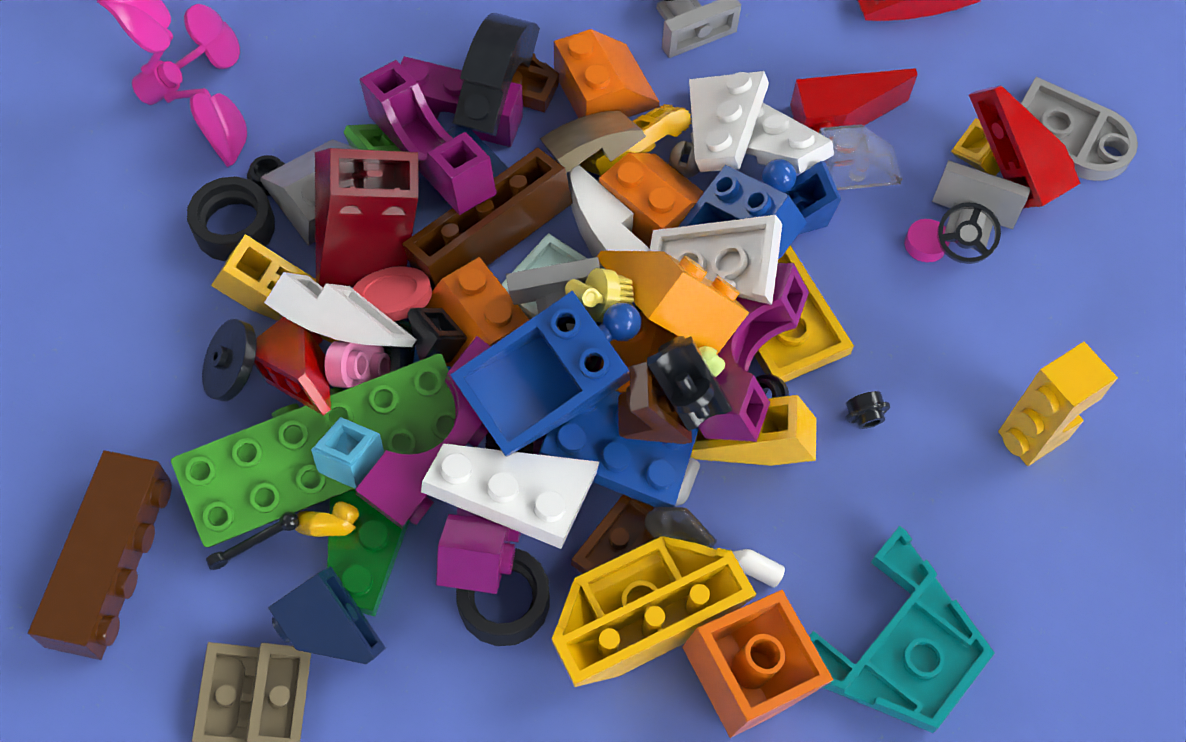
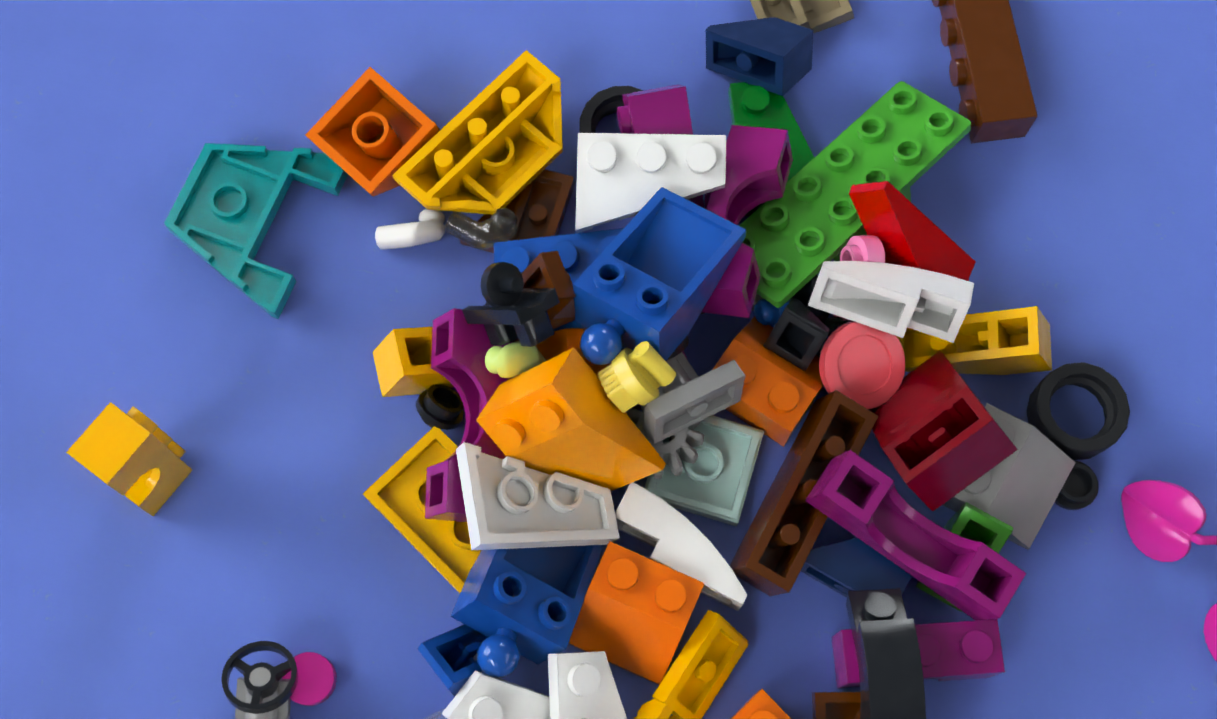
camera: 160 degrees right, 10 degrees up
(229, 360) = (982, 248): black piece -> none
(288, 522) = (842, 124): black hinge -> none
(325, 524) = (809, 129): yellow arm -> none
(347, 452) = (815, 175): medium azure slope -> none
(581, 138) = (735, 643): dark tan slope -> none
(686, 169) = (633, 687): light grey hinge -> none
(867, 409) = (333, 433): black plate -> none

